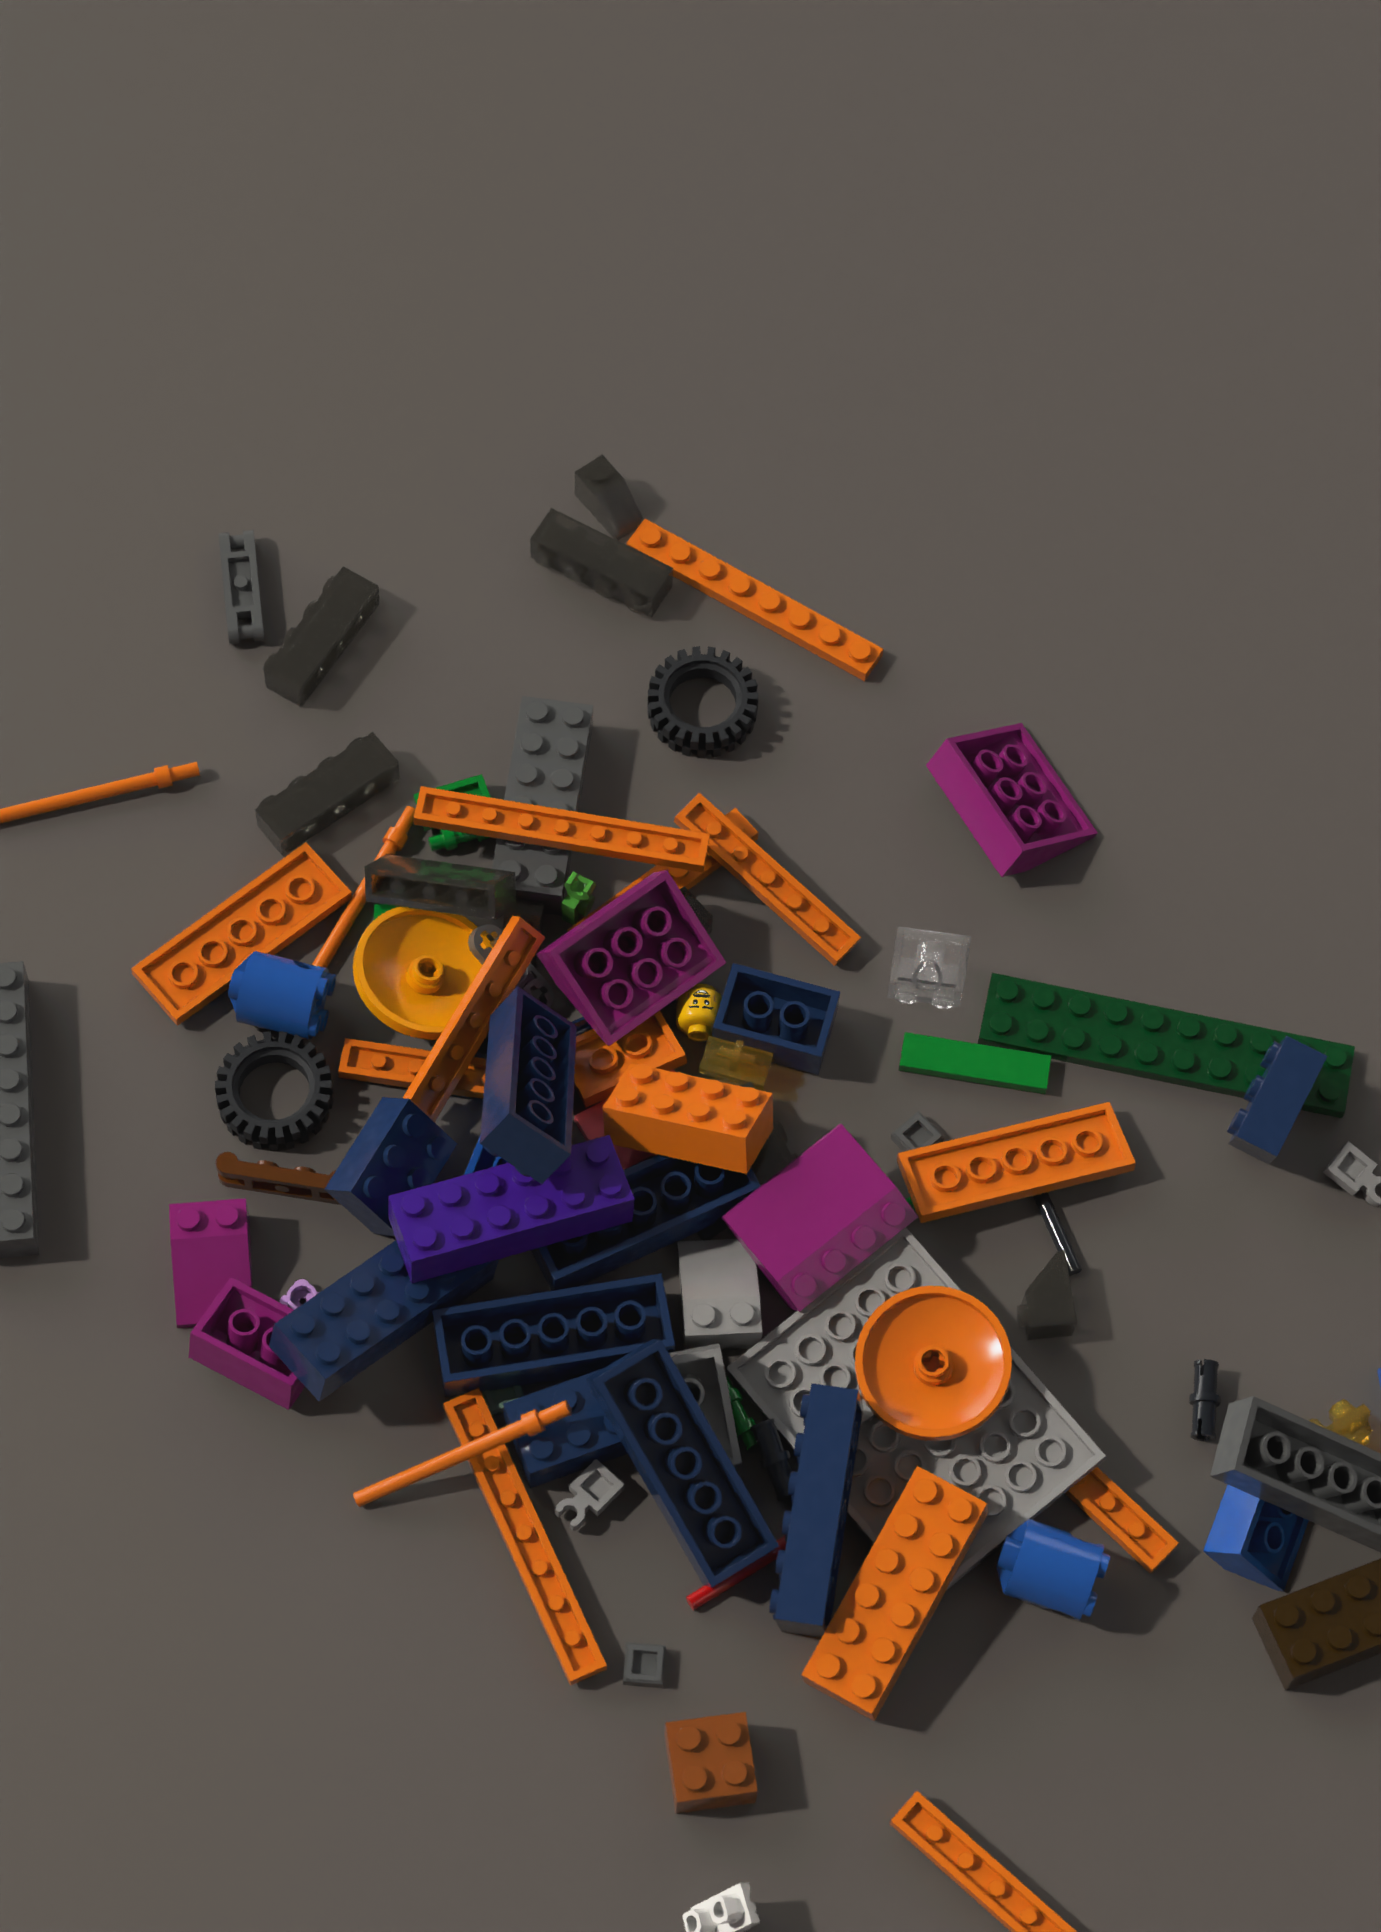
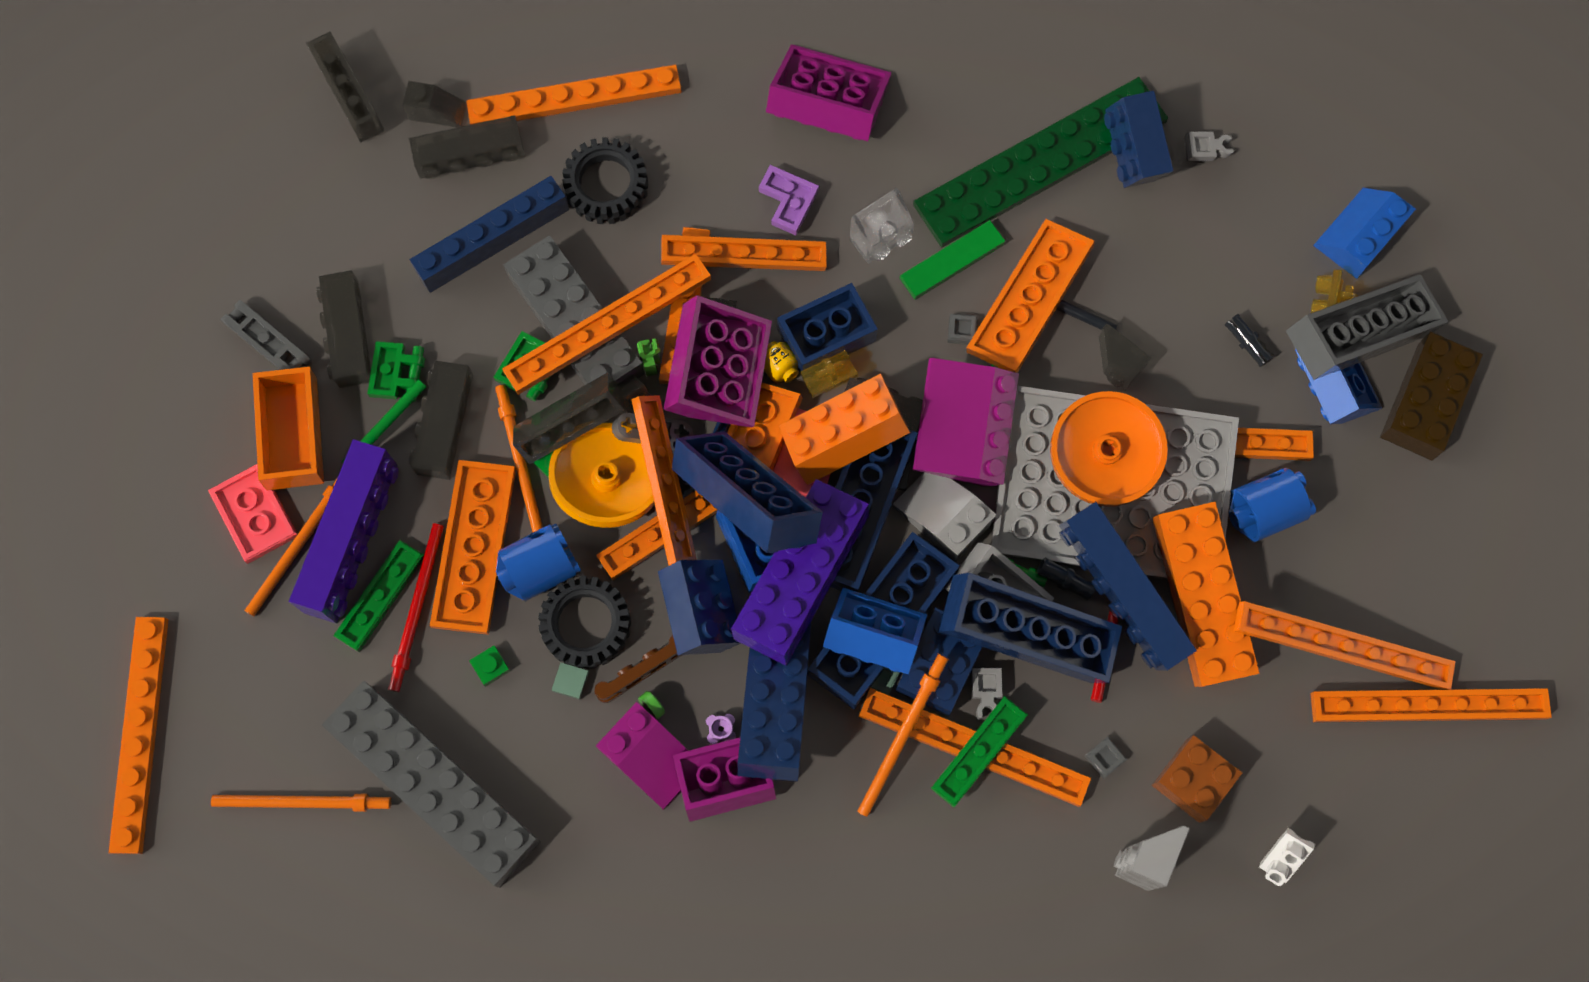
camera: 40 degrees left, 10 degrees up
(76, 979) = (402, 661): none -> red bar
(77, 733) = (252, 515): none -> coral tile
(115, 904) = (379, 596): none -> green tile
(138, 816) = (344, 532): none -> dark purple brick
(150, 1054) = (489, 665): none -> green plate
(180, 681) = (287, 428): none -> orange piece
(208, 1133) = (570, 681): none -> sand green tile
(260, 1220) = (651, 705): none -> bright green tile
(271, 752) = (388, 419): none -> green bar
(323, 706) = (387, 369): none -> green plate
(522, 1539) = (979, 751): none -> green tile
(527, 1327) = (875, 631): none -> blue slope
(539, 413) = (345, 86): none -> clear smoke brick
(541, 660) = (490, 234): none -> dark blue brick
(584, 1779) = (1152, 860): none -> light grey slope
(875, 870) = (795, 198): none -> medium lavender plate
(988, 1770) = (1344, 645): none -> orange plate

